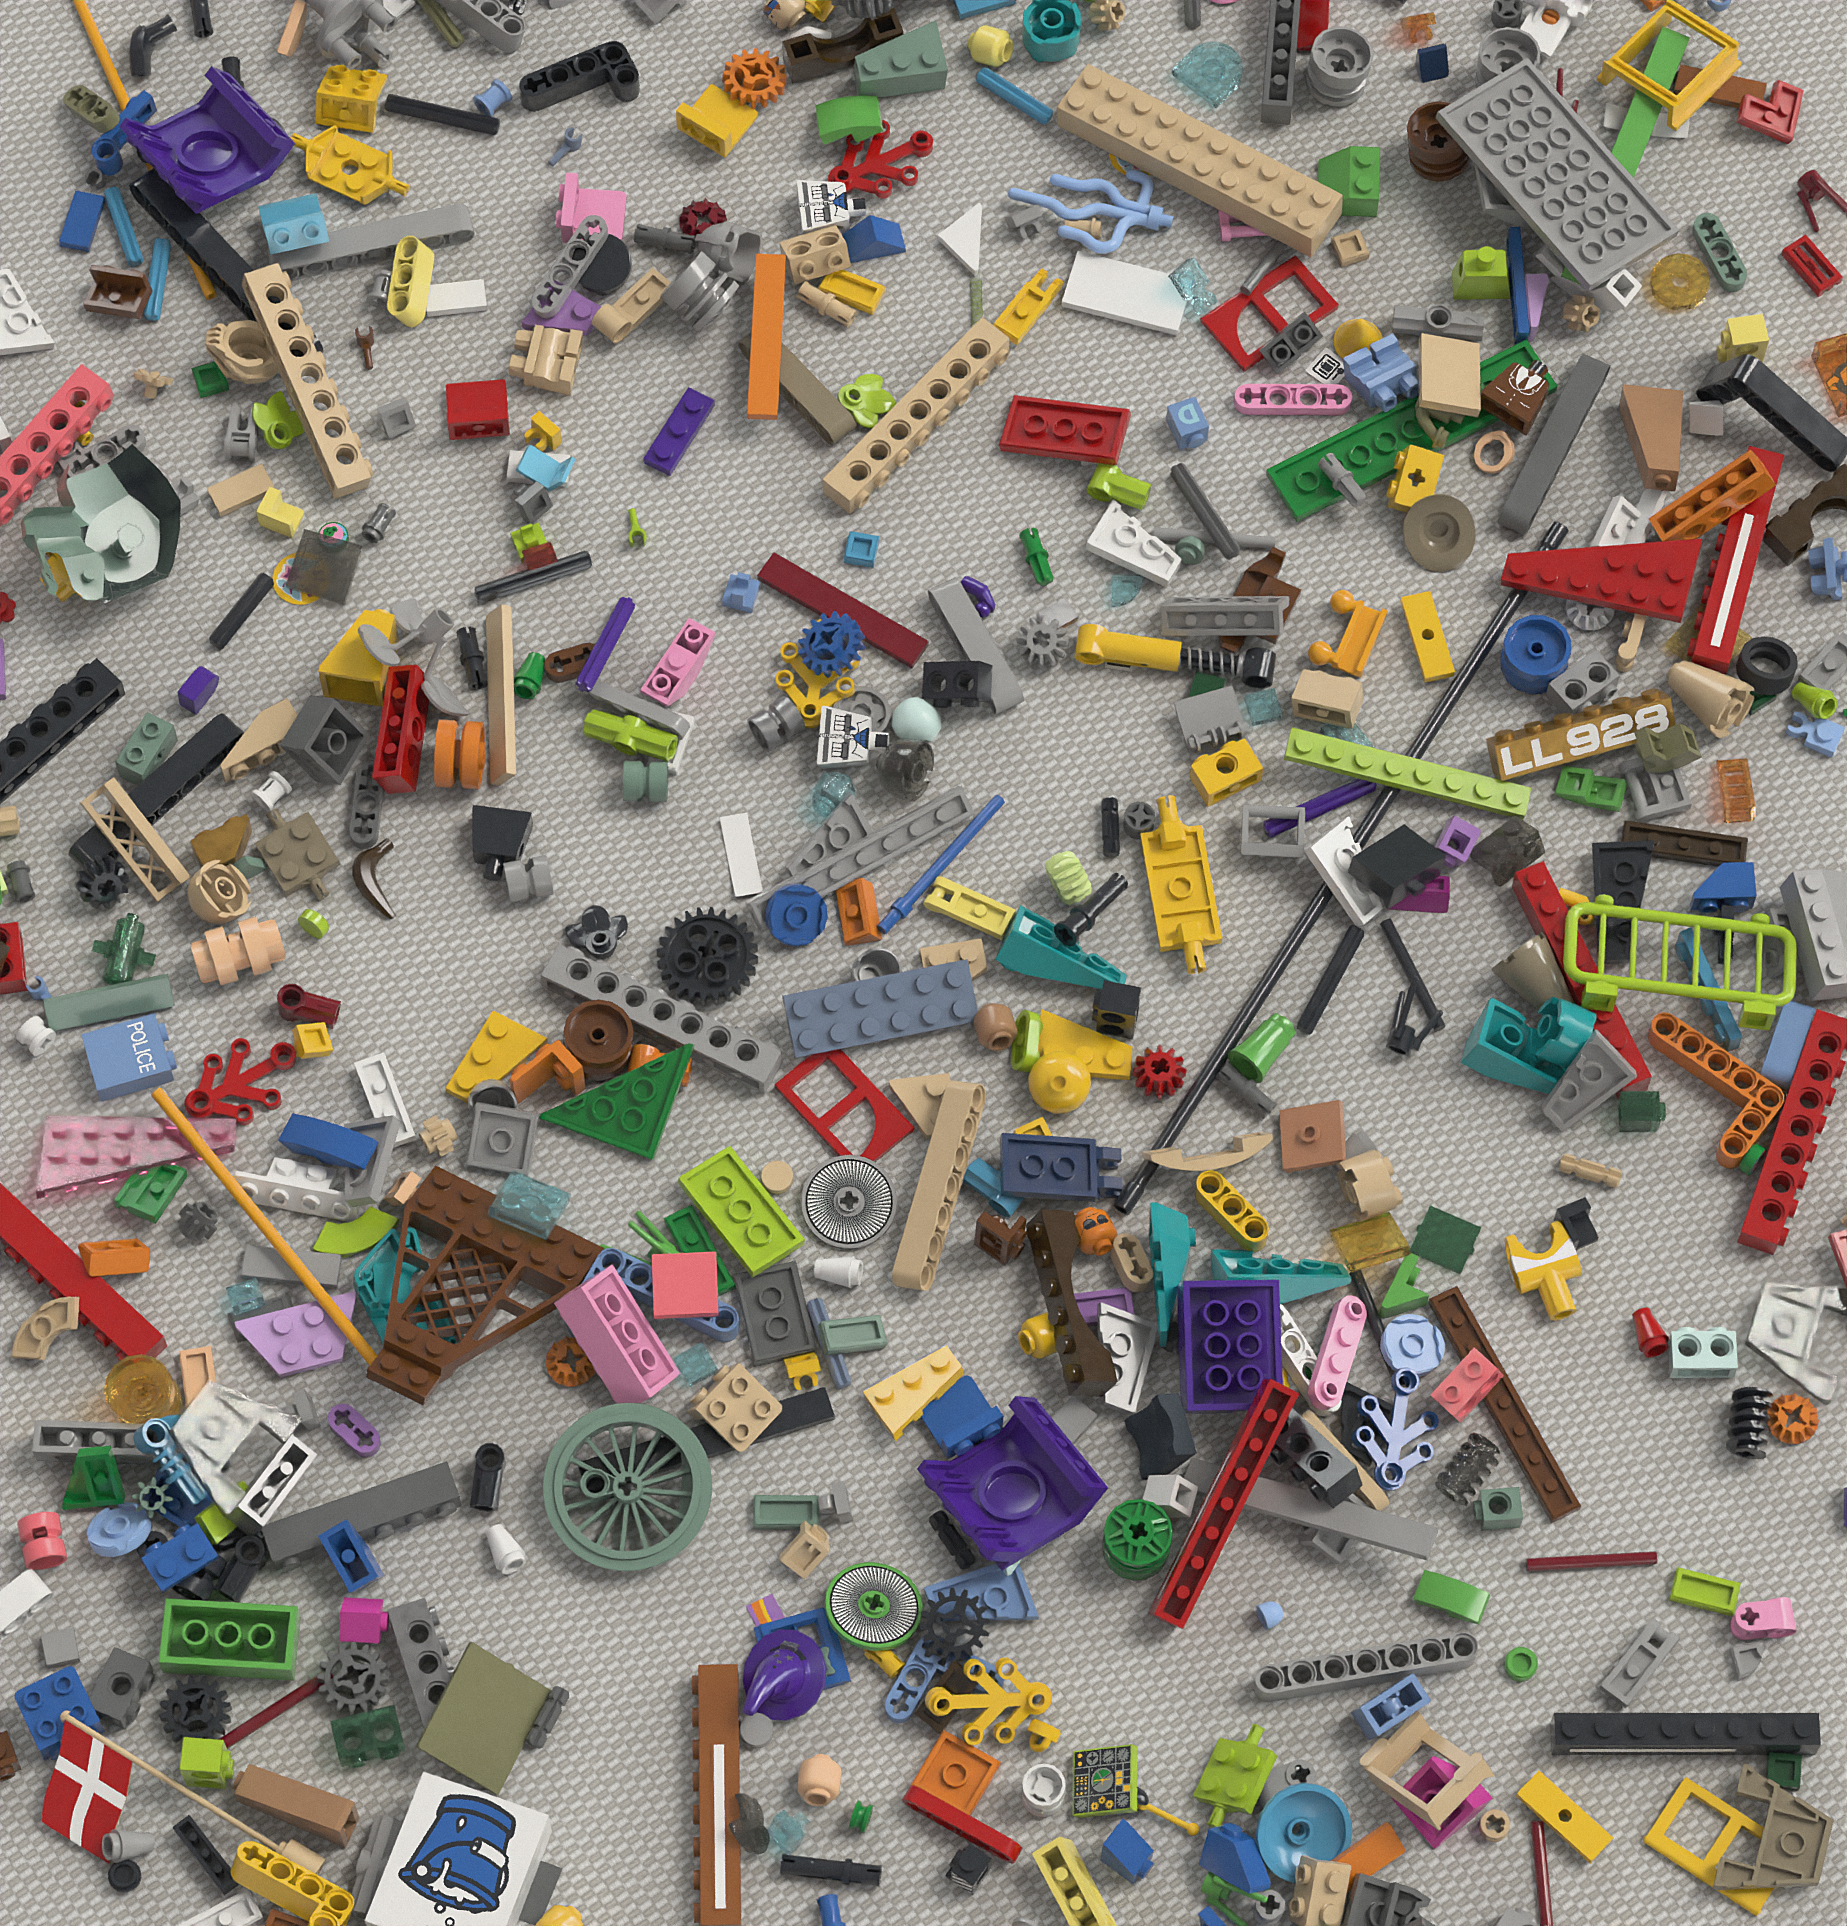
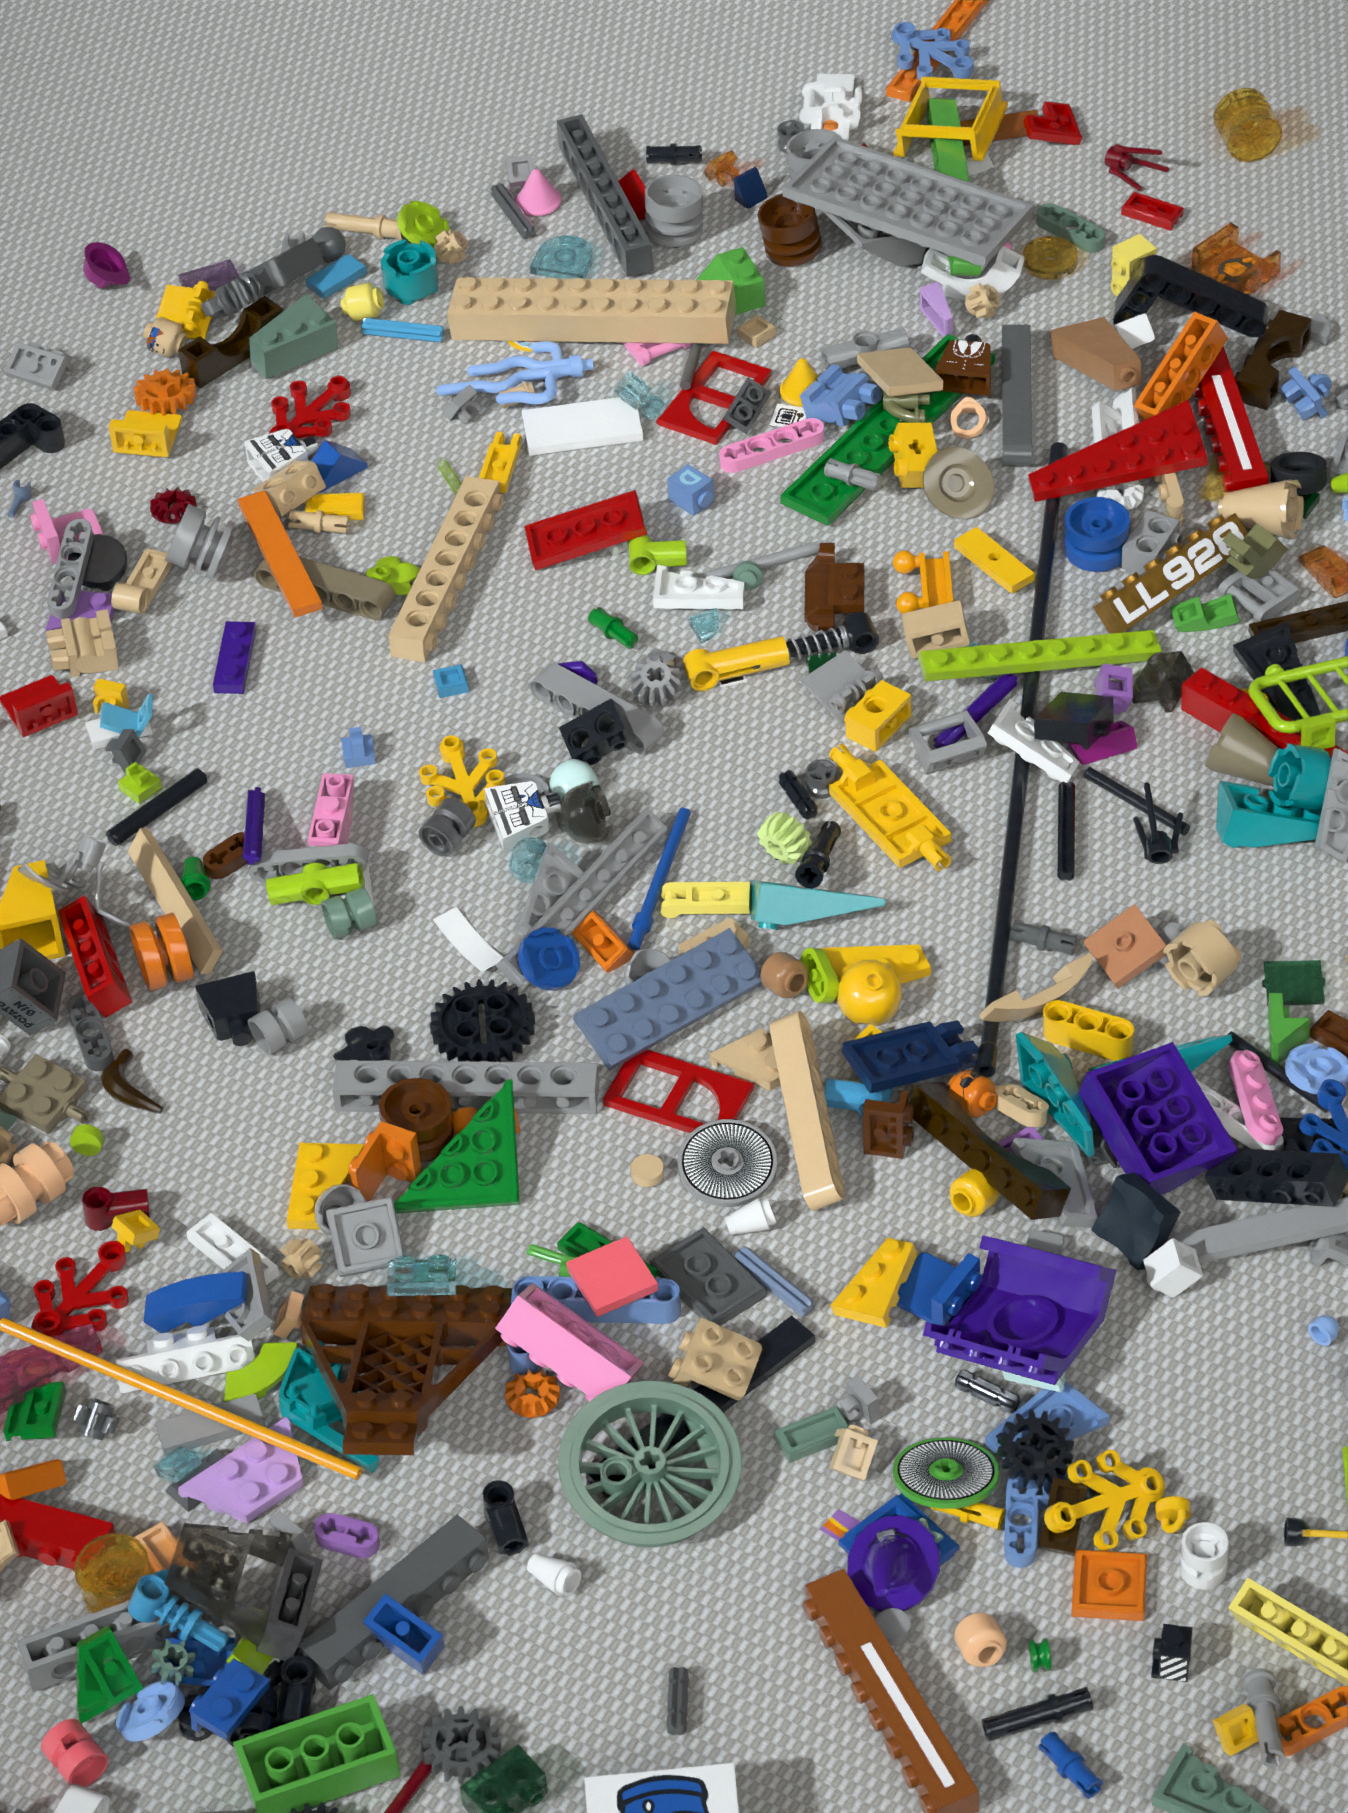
camera: 20 degrees left, 20 degrees down
(362, 1620) = (445, 1687): dark pink brick -> none
(406, 1621) = (562, 1745): flat silver brick -> none
(472, 658) = (131, 886): black pin -> none
(483, 1718) = (613, 1717): olive piece -> none
(539, 556) = (155, 784): clear red slope -> none
(635, 528) = (235, 740): lime hand -> none
(664, 238) = (145, 527): dark grey pin -> none
(695, 1364) = (655, 1349): clear light blue tile -> none
(731, 249) = (214, 500): light grey helmet -> none
(741, 1211) = (629, 1205): lime plate -> none
(750, 1827) = (945, 1713): clear smoke plate -> none
(788, 1831) = (974, 1696): clear light blue tile -> none
(800, 1366) = (760, 1307): yellow tile -> none
(824, 598) = (468, 728): dark red tile -> none
(831, 644) = (466, 746): blue gear -> none
(849, 115) = (261, 387): bright green slope -> none
(852, 1334) = (793, 1262): sand green tile -> none
(962, 1824) = (1141, 1621): red beam -> none
(963, 238) = (416, 438): white tile -> none
(1105, 1781) = (1258, 1524): tile -> none
(1116, 1009) = (890, 913): black brick -> none
(1127, 1853) = (1318, 1573): blue slope -> none
(1140, 1557) = (1165, 1313): green wheel -> none
(1166, 1080) = (956, 952): red gear -> none
(1205, 511) = (744, 542): dark grey axle -> none
(1223, 615) = (808, 602): light grey fence -> none
(1223, 1503) = (1230, 1245): red brick -> none
(1262, 1047) = (1038, 897): bright green plant -> none
(1263, 707) = (881, 659): clear light blue tile -> none
(1370, 1242) = (1230, 1002): clear yellow tile -> none
(1481, 275) = (882, 302): lime torso -> none
(1517, 285) = (916, 302): blue tile -> none

